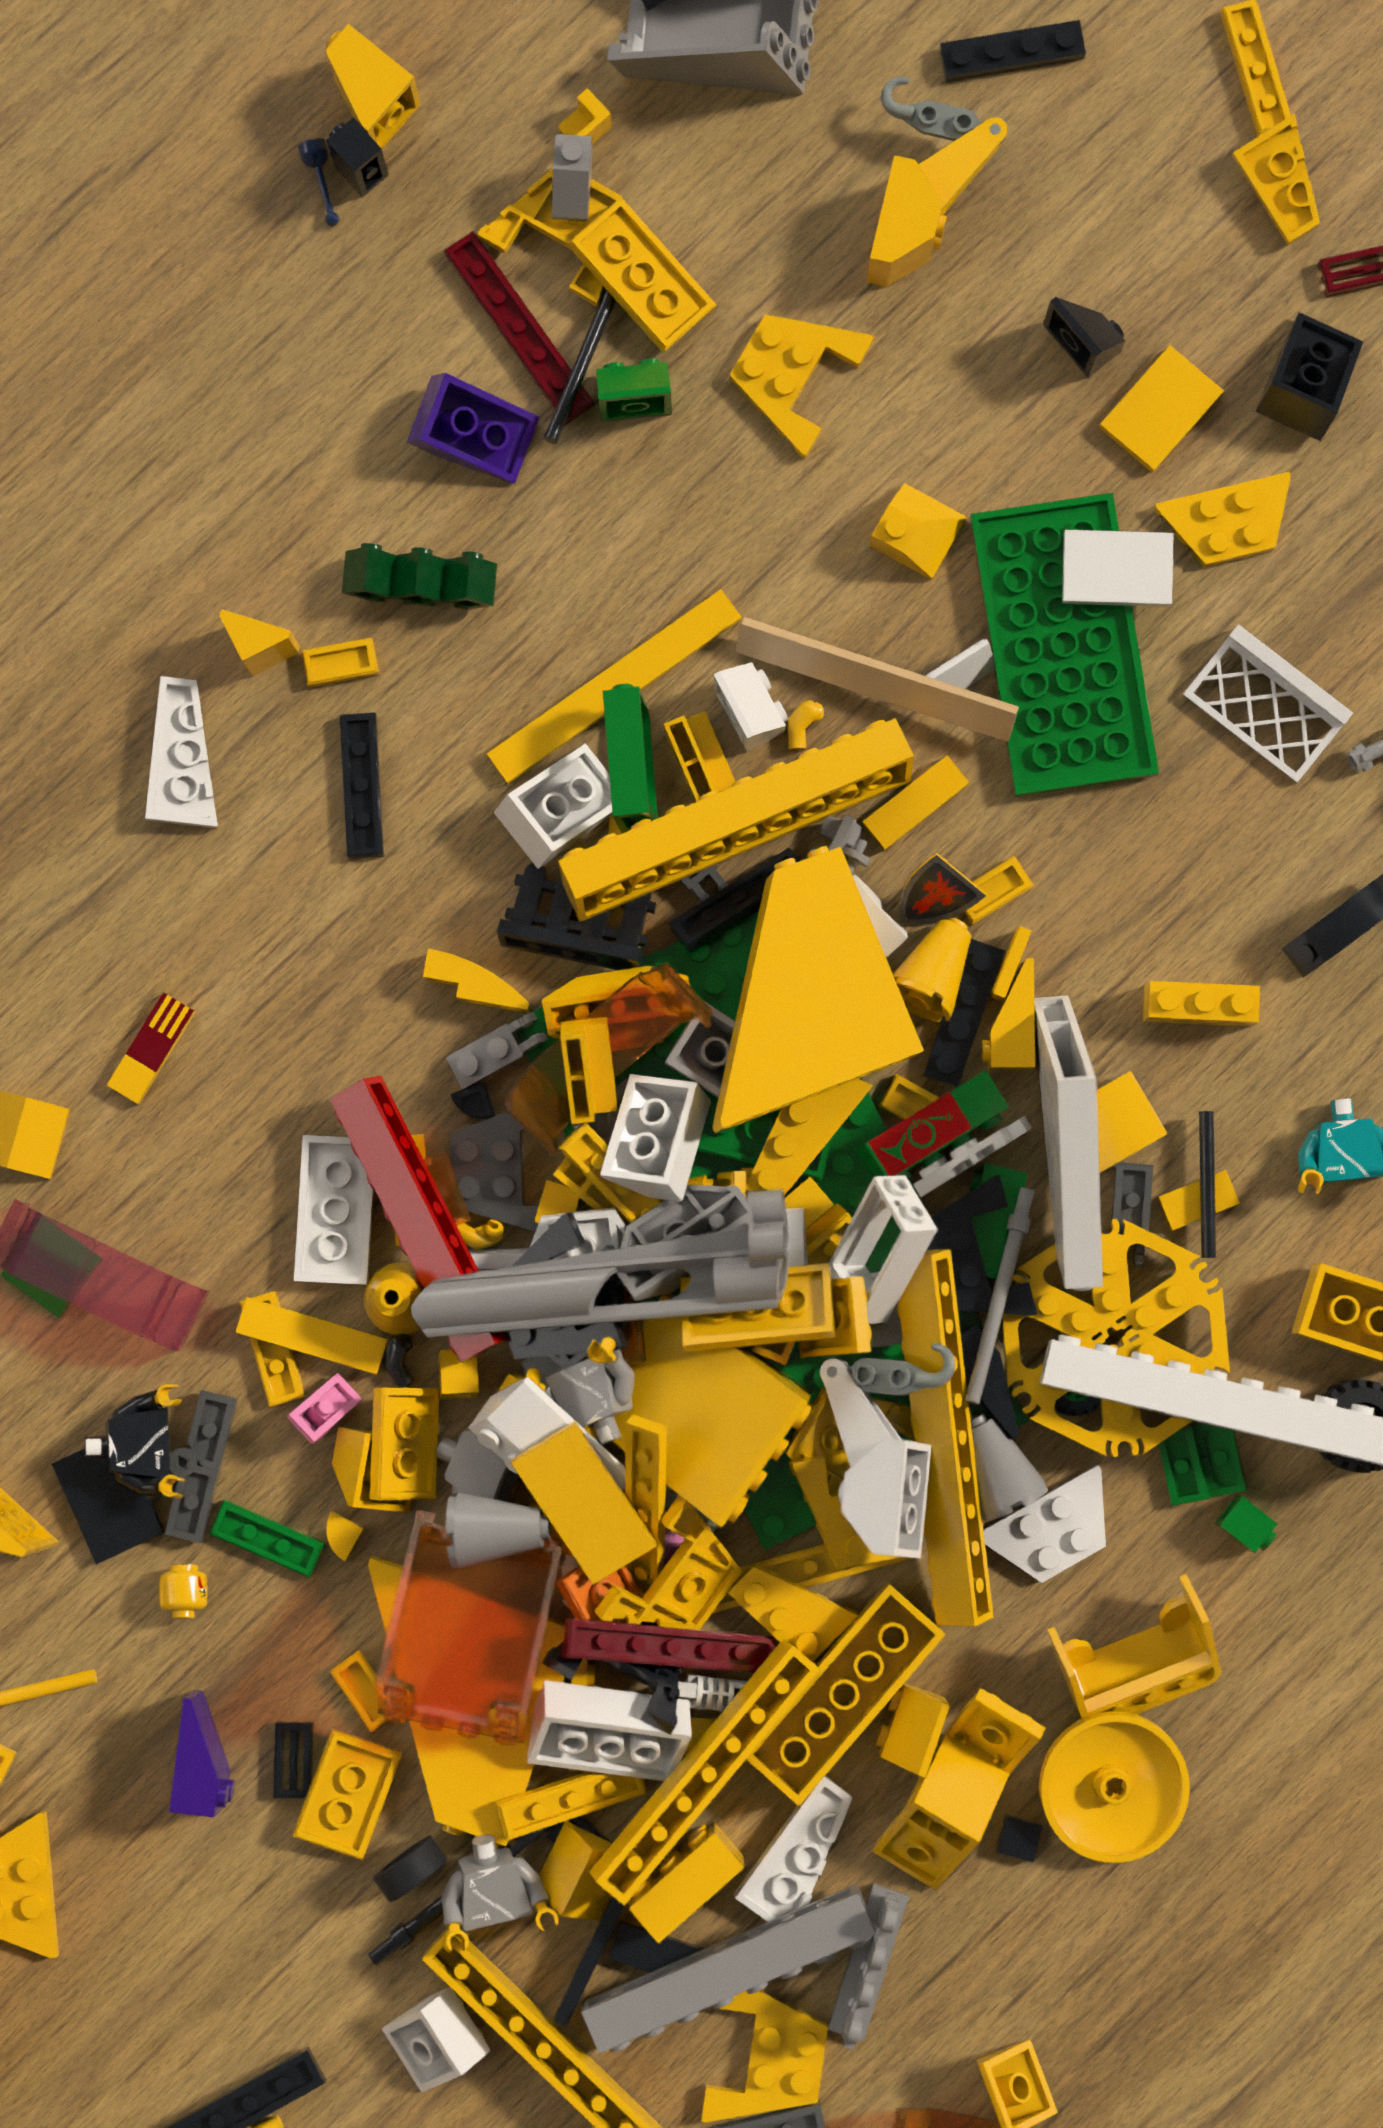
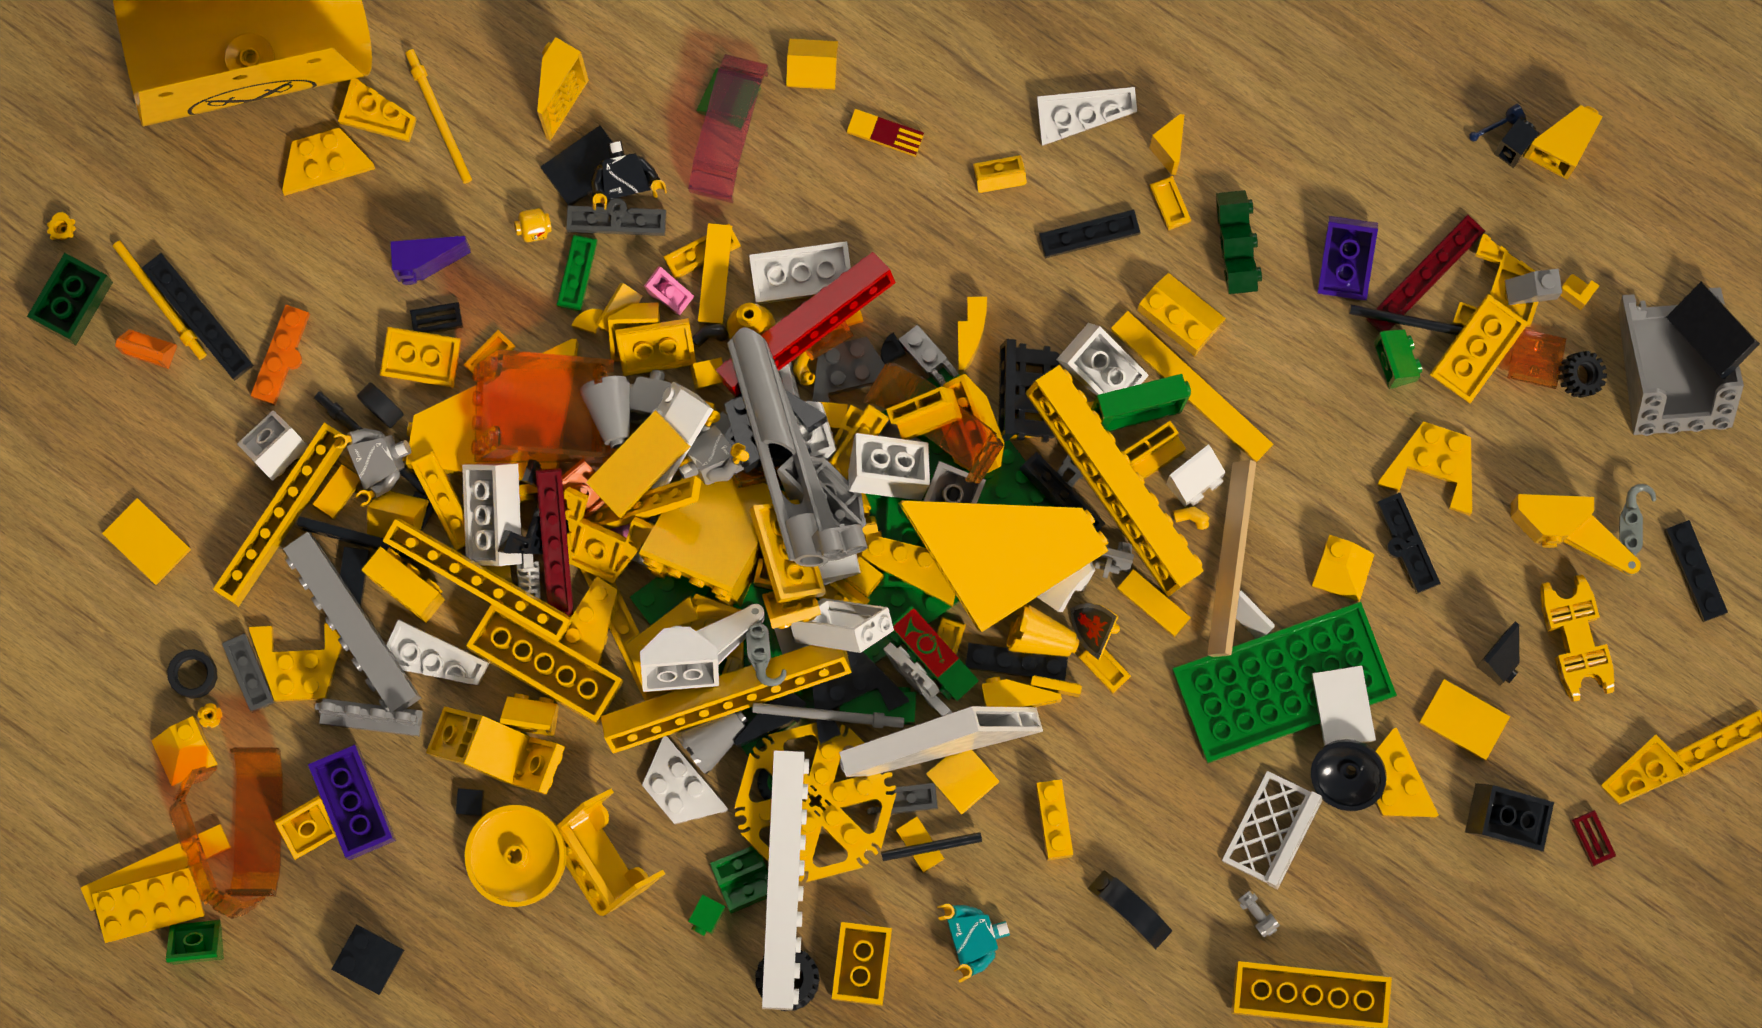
camera: 75 degrees right, 5 degrees down
(246, 895) = (1000, 174): none -> yellow slope
(301, 2002) = (281, 355): none -> orange hinge
(323, 1482) = (622, 298): none -> yellow tile
(507, 679) = (1180, 314): none -> yellow slope
(524, 1954) = (337, 492): none -> yellow tile
(672, 198) = (1537, 358): none -> clear orange slope
(707, 155) = (1593, 369): none -> black tyre
(899, 433) = (1407, 543): none -> black hinge
(993, 2014) = (352, 802): none -> dark purple brick
(1102, 229) = (1577, 637): none -> yellow piece
(1222, 2030) = (367, 959): none -> black slope
(1229, 582) = (1348, 788): none -> black dish

